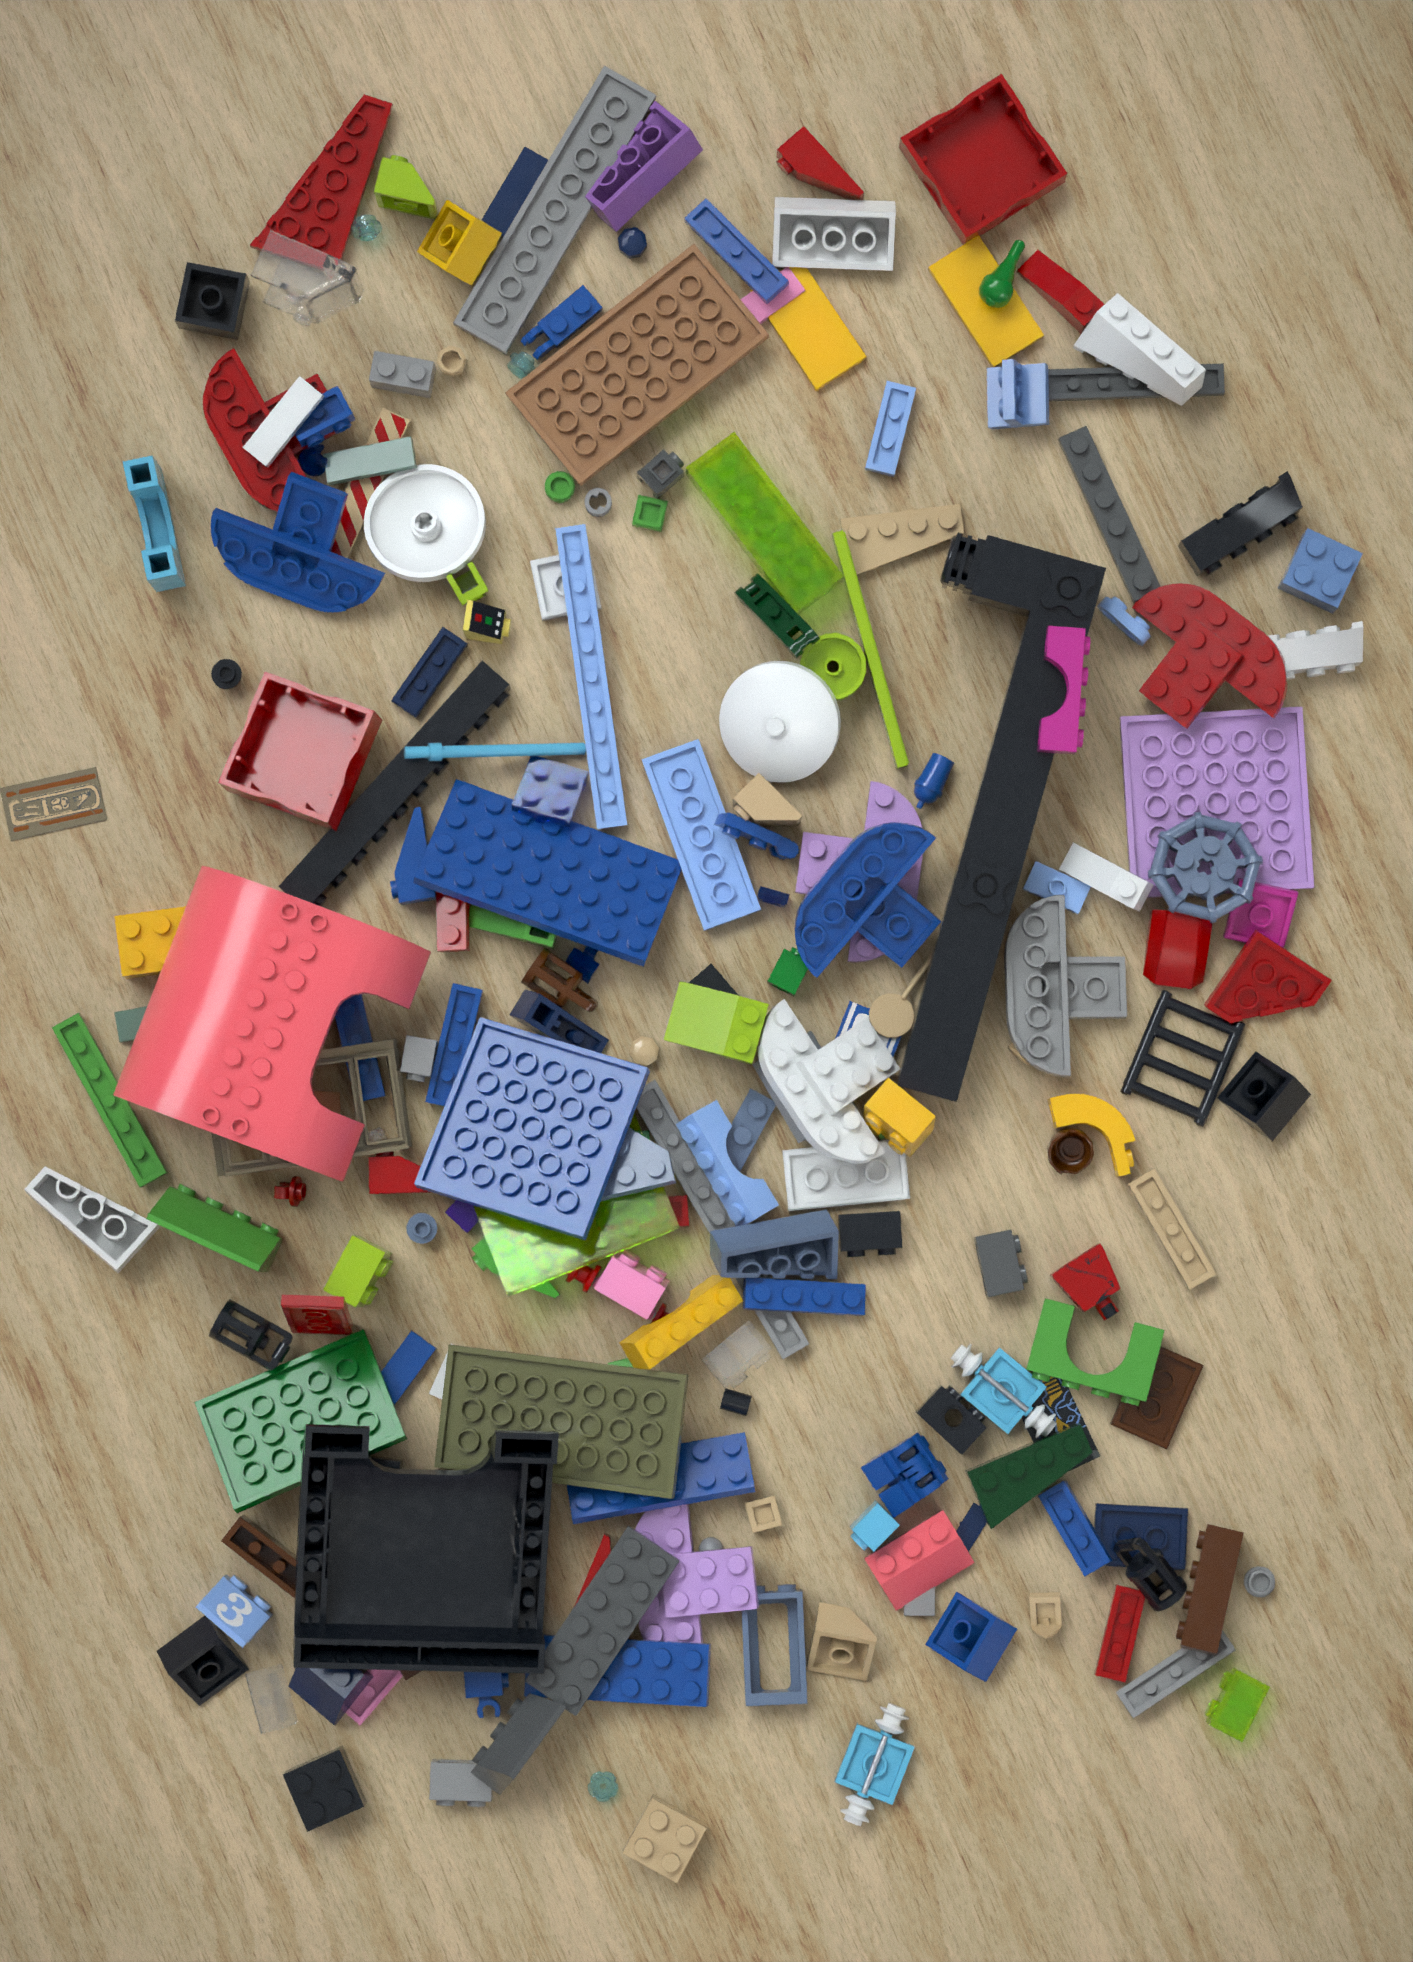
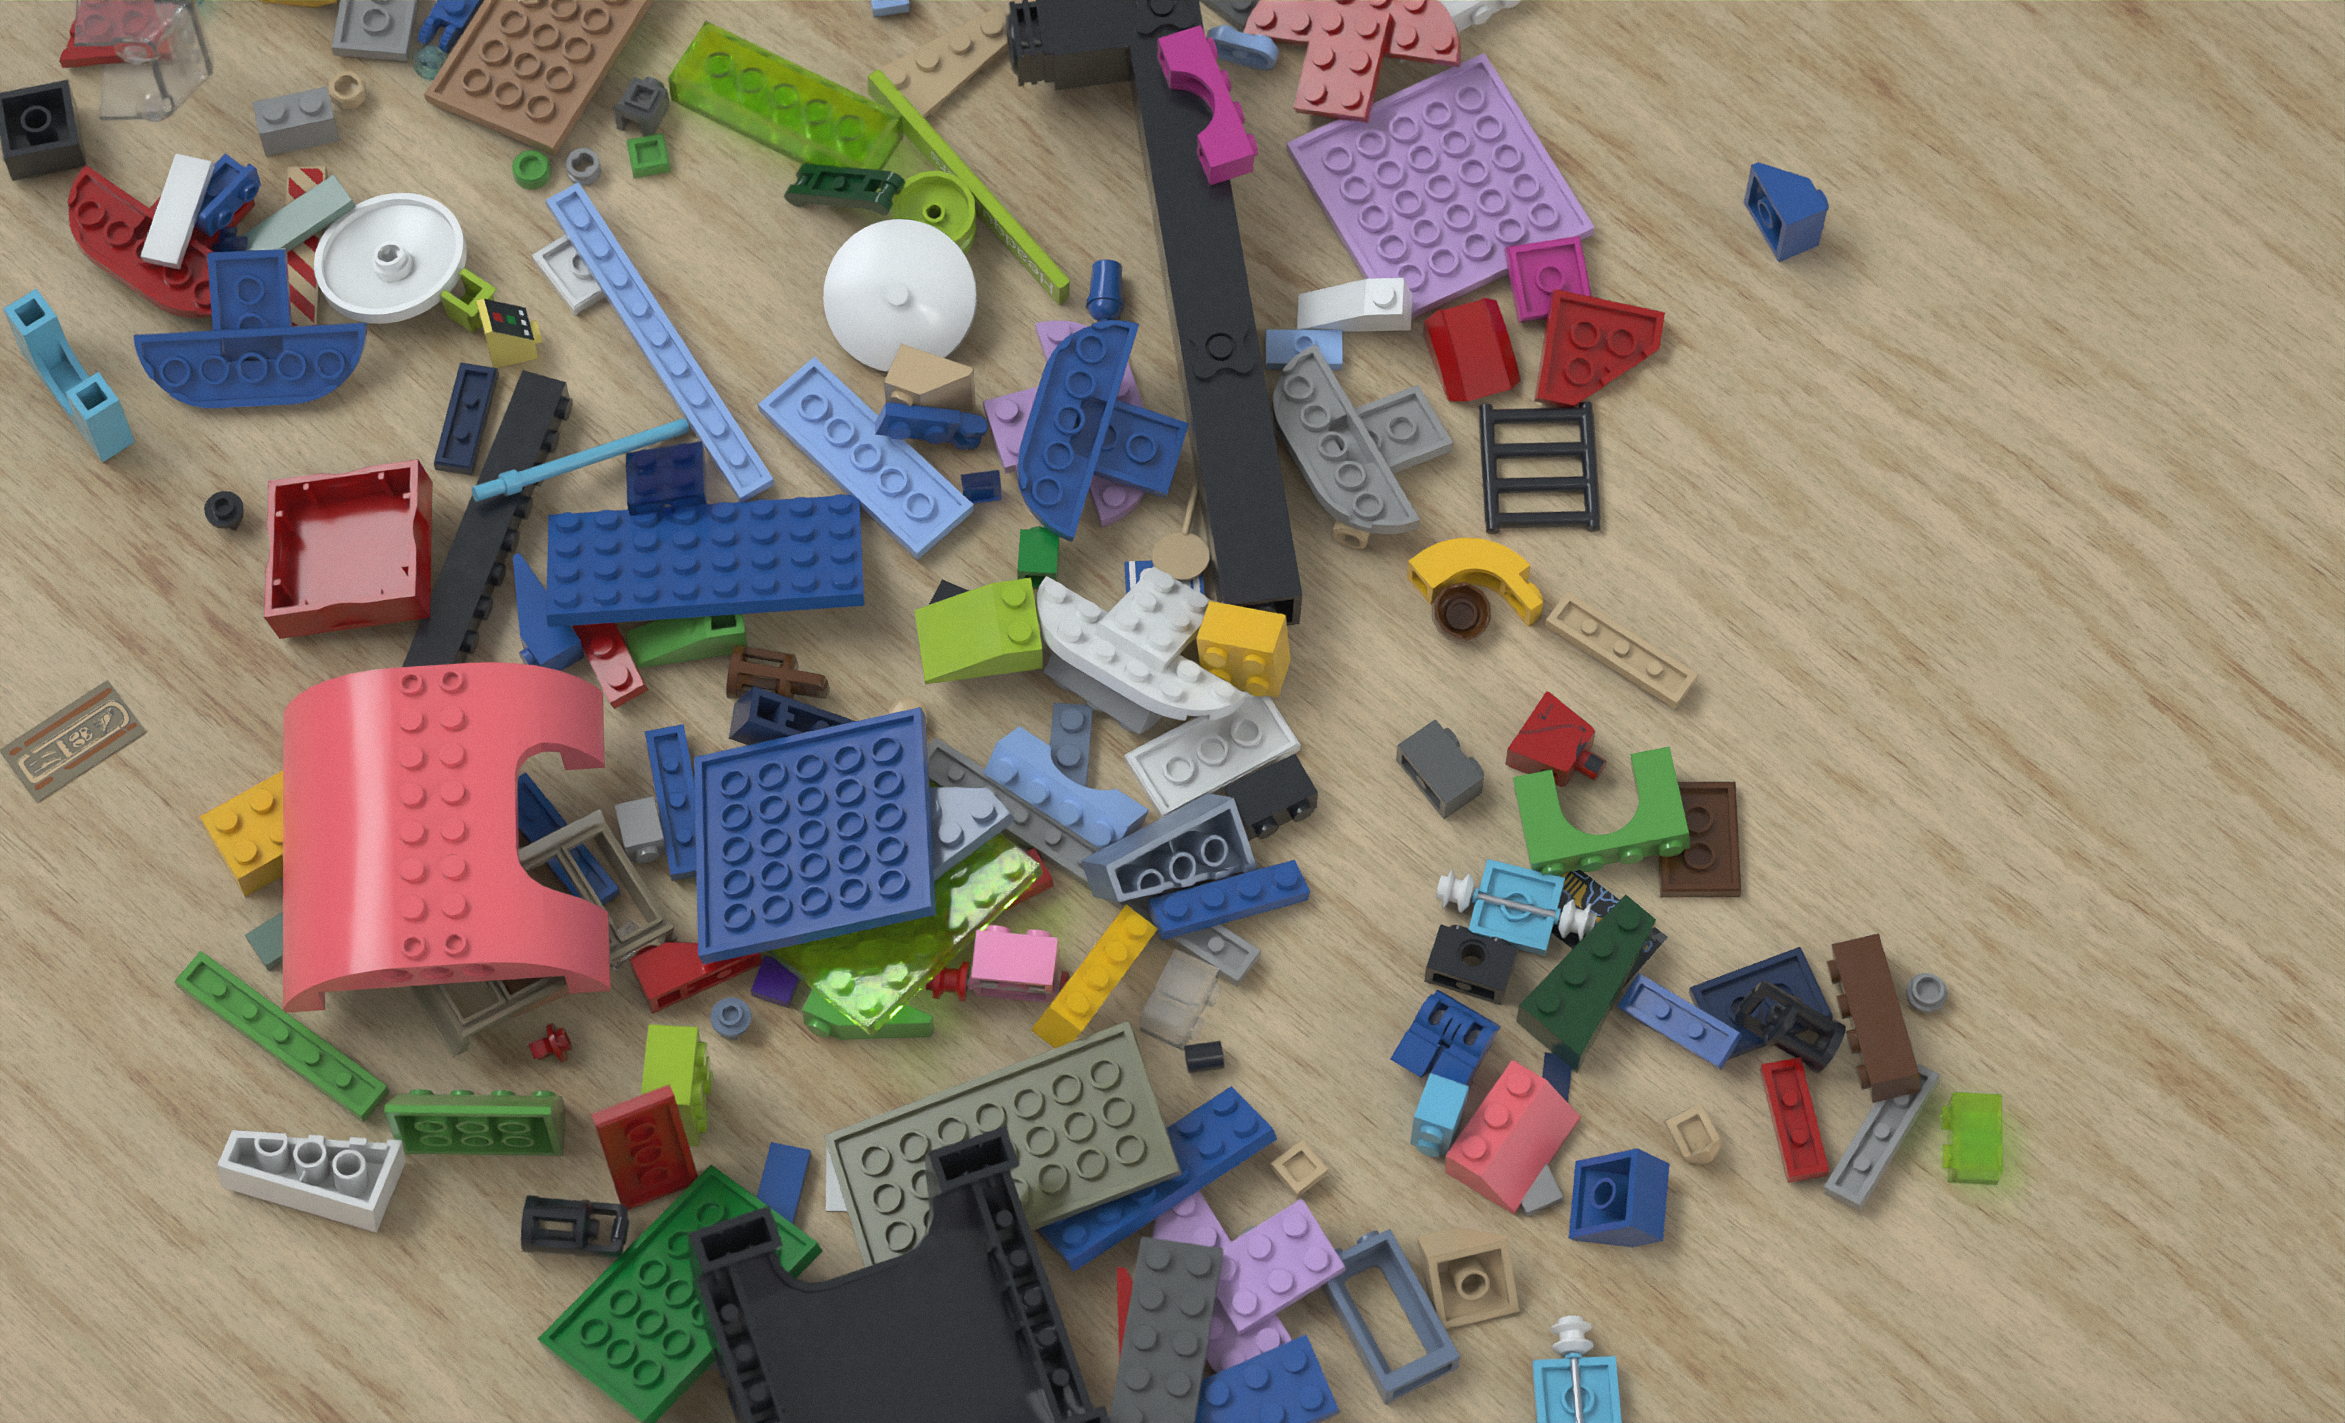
camera: 25 degrees left, 20 degrees down
(584, 962) = (793, 642): clear blue tile -> none
(1209, 850) = (1457, 230): sand blue plate -> none
(1264, 1095) = (1653, 464): black slope -> none

